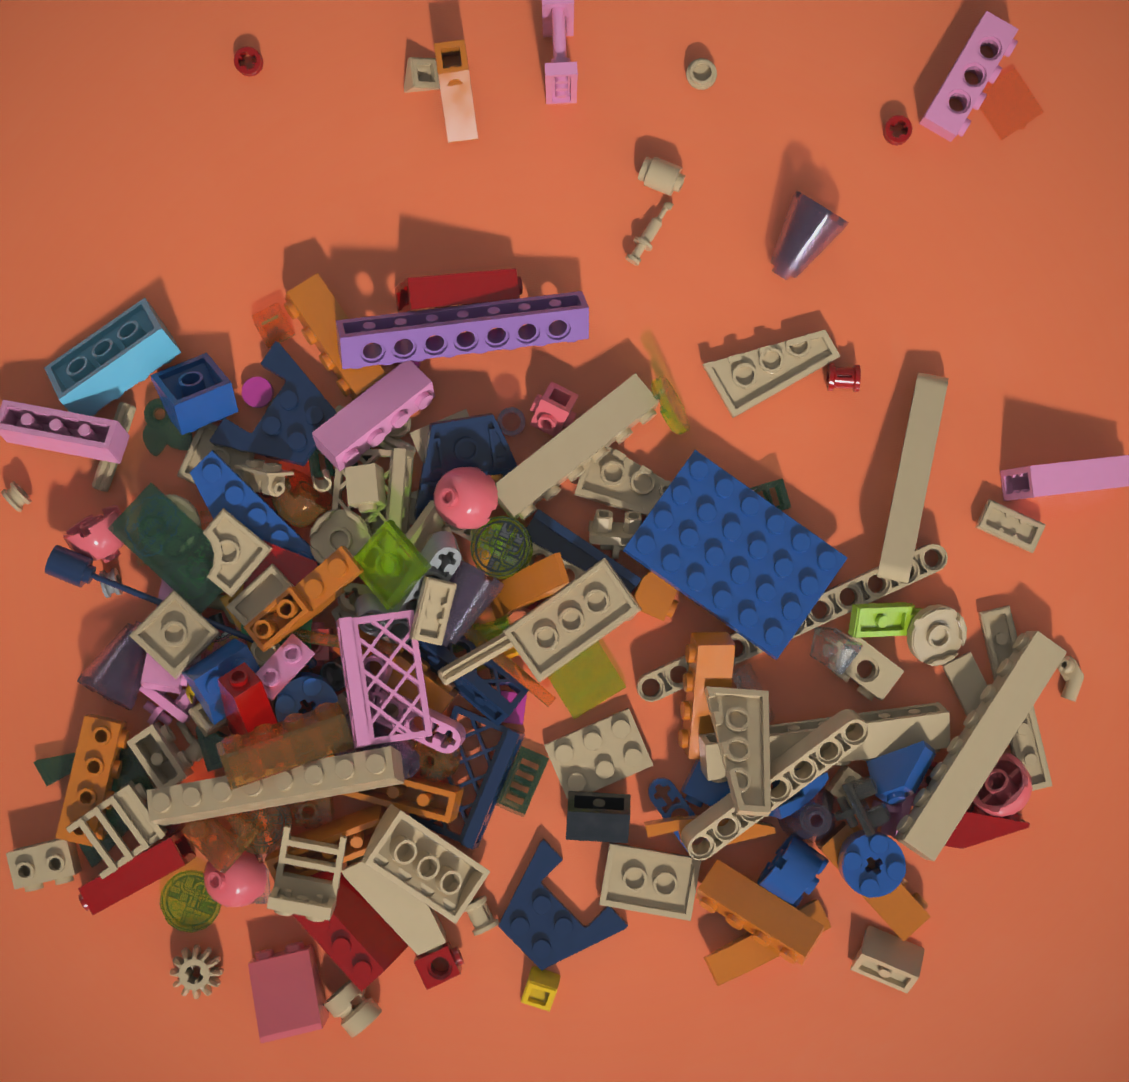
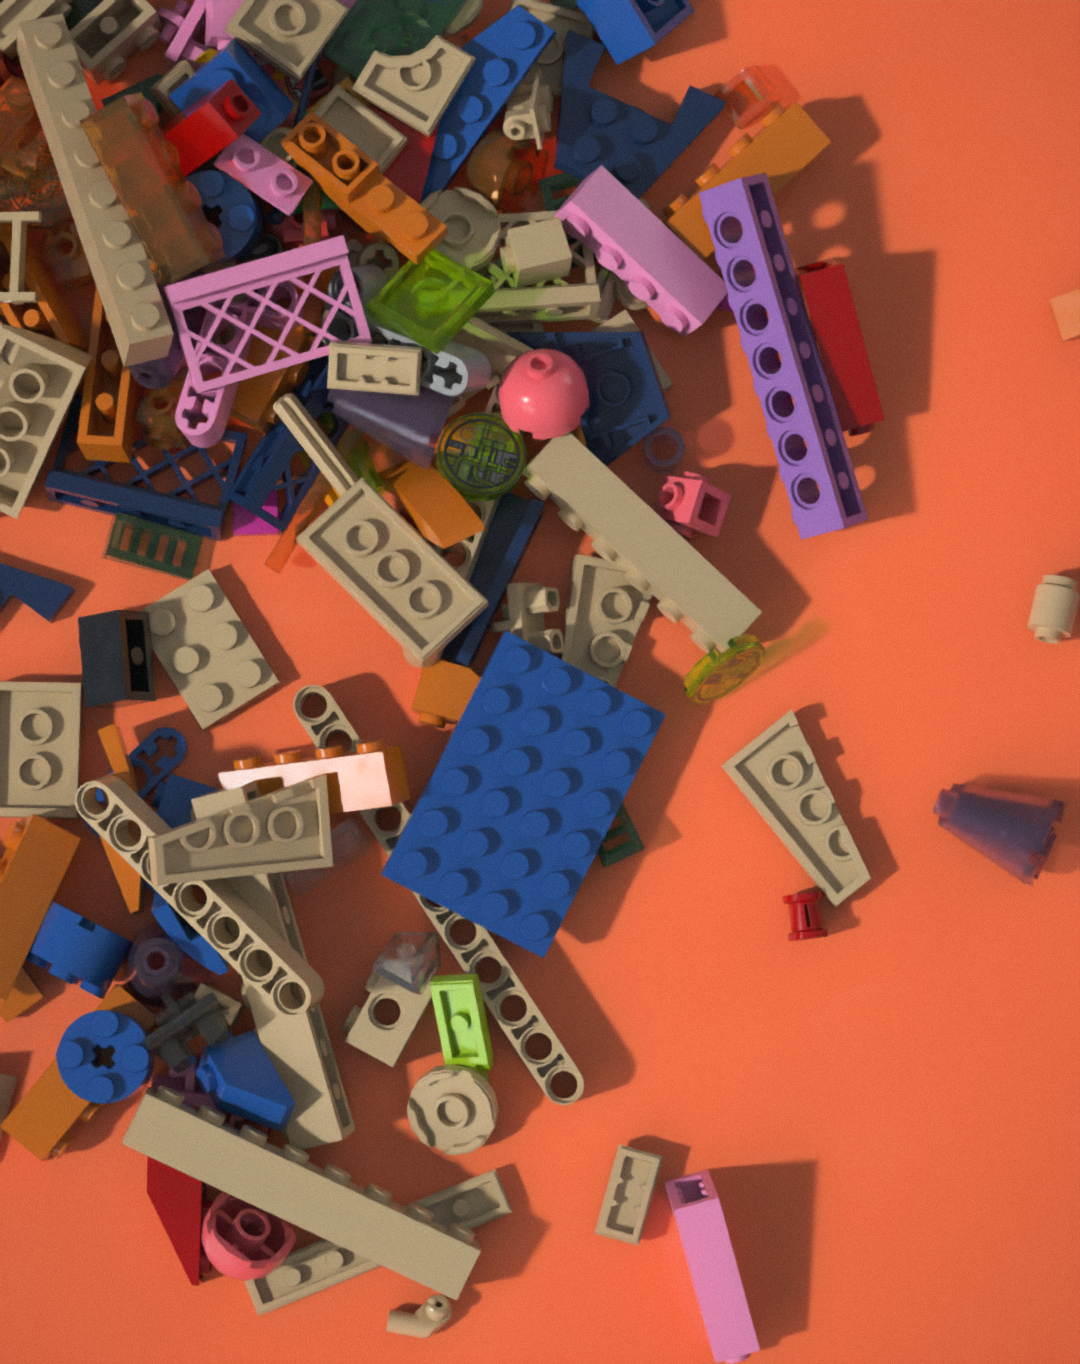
camera: 85 degrees right, 5 degrees down
(193, 751) = (127, 78): tan hand -> none
(257, 392) = (649, 89): dark pink tile -> none
(325, 484) = (531, 199): tan hand -> none
(586, 680) = (312, 614): clear neon green tile -> none
(647, 236) = (965, 604): tan piece -> none
(912, 477) = (675, 1035): tan beam -> none
(966, 681) = (393, 1164): tan tile -> none

